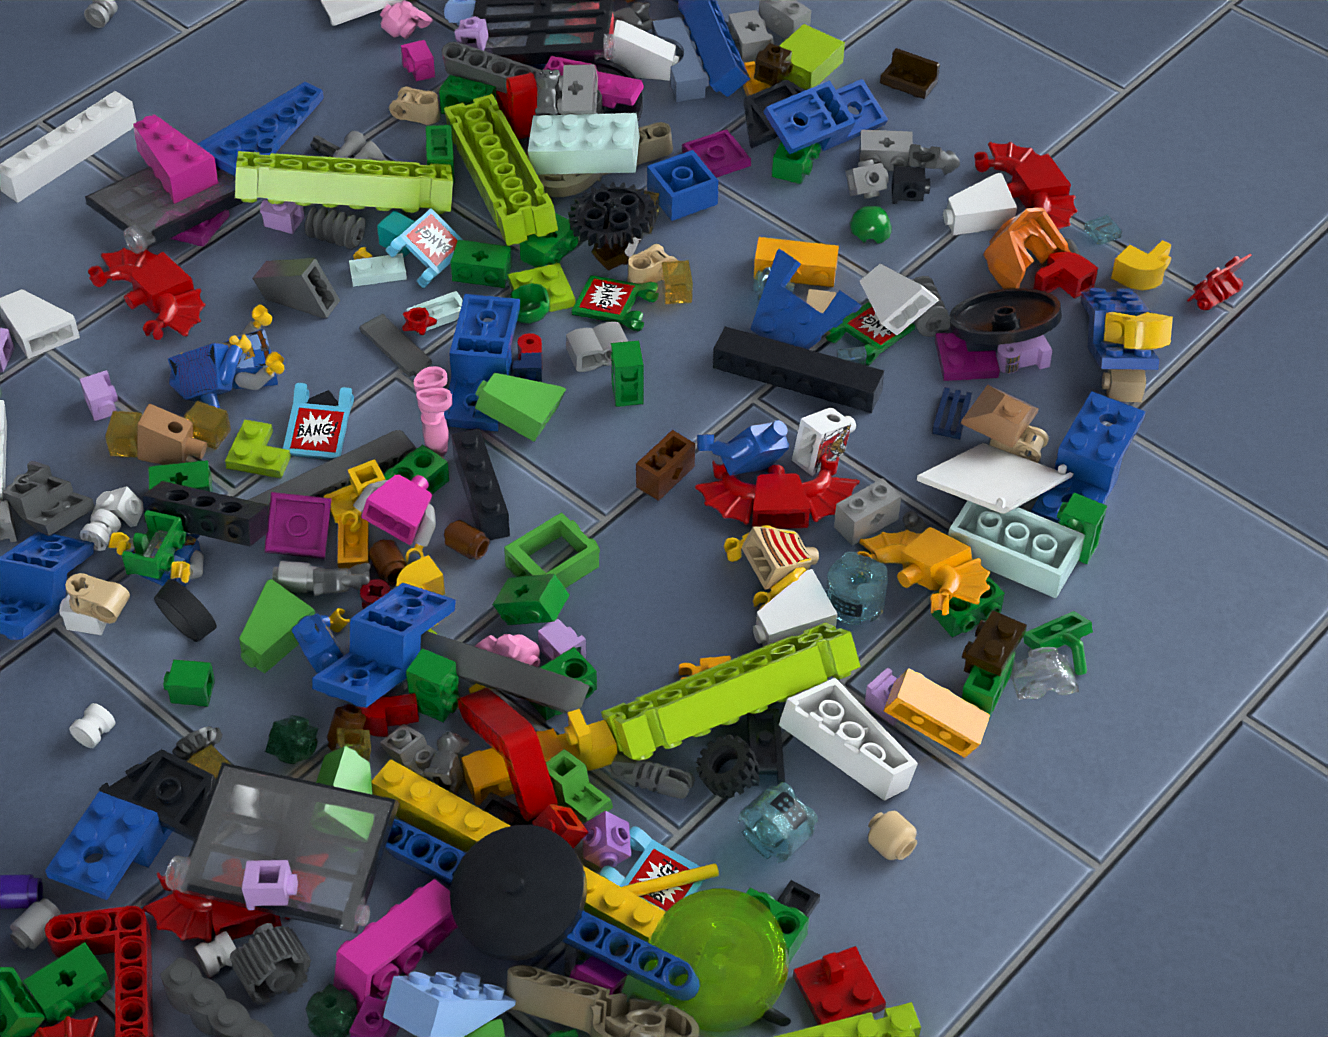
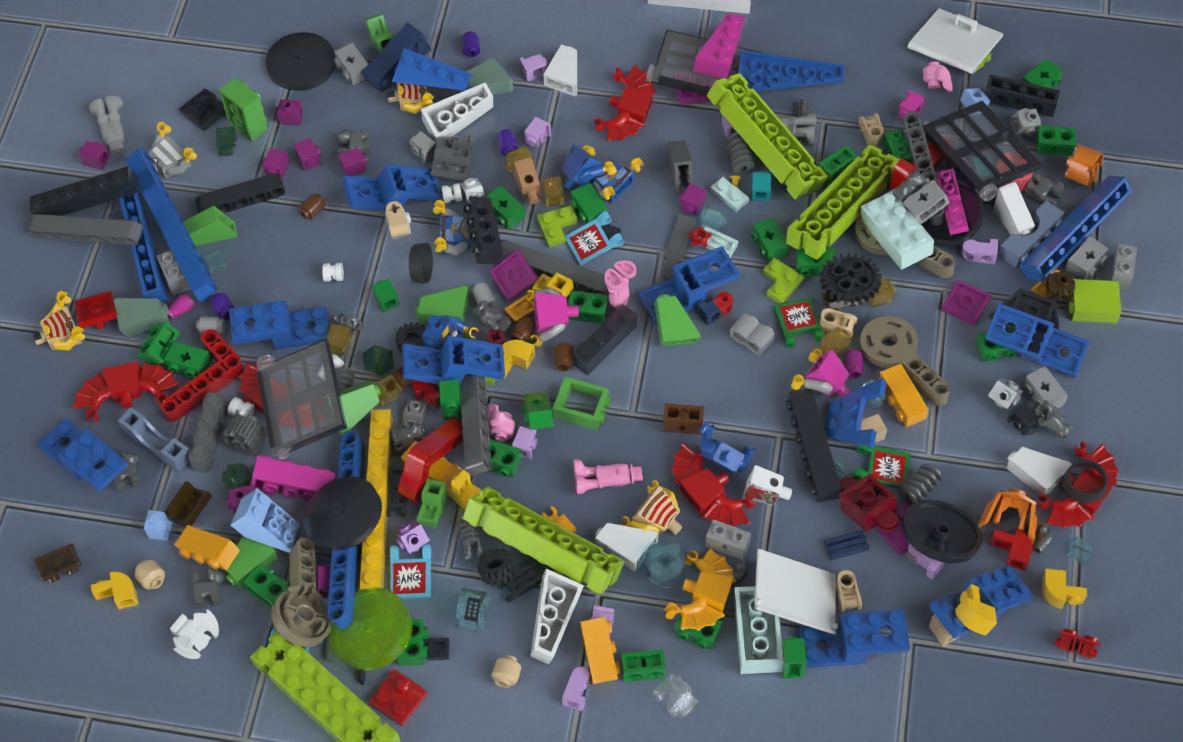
camera: 60 degrees right, 10 degrees up
(82, 433) = (507, 141): none -> dark purple brick
(156, 547) = (446, 224): green window -> none
(168, 787) = (308, 325): black wing -> none
(263, 400) = (587, 203): none -> green brick
(268, 883) = (270, 402): lavender brick -> none
(287, 674) = (408, 331): none -> black tyre
(355, 301) = (693, 199): none -> magenta brick
(399, 296) = (712, 218): none -> clear light blue head
(430, 242) = (762, 205): flag -> none
(472, 29) = (937, 118): lavender brick -> none
(533, 302) = (756, 281): green hair -> none
(555, 819) = (396, 509): red brick -> none
(627, 373) = (735, 359): green brick -> none
(664, 106) = (979, 251): none -> lavender leg
(673, 880) = (408, 580): yellow bar -> none
(678, 588) = (606, 476): none -> bright pink piece
(683, 185) = (915, 299): blue brick -> none
(716, 304) = (825, 375): none -> dark pink torso
(718, 281) = (854, 363): none -> magenta brick
(739, 227) = (903, 353): none -> dark tan beam
(871, 223) = (972, 418): green hair -> none
(896, 298) = (906, 462): white slope -> none
(911, 74) = (1129, 367): dark brown bracket -> none
(923, 357) = (868, 503): none -> dark red brick
(967, 773) = (573, 693): none -> lavender leg
(994, 643) = (662, 653): dark brown bracket -> none
(999, 416) = (850, 570): medium nougat slope -> none
(1031, 185) = (1079, 496): none -> black tyre
(1063, 631) = (708, 687): green plate -> none

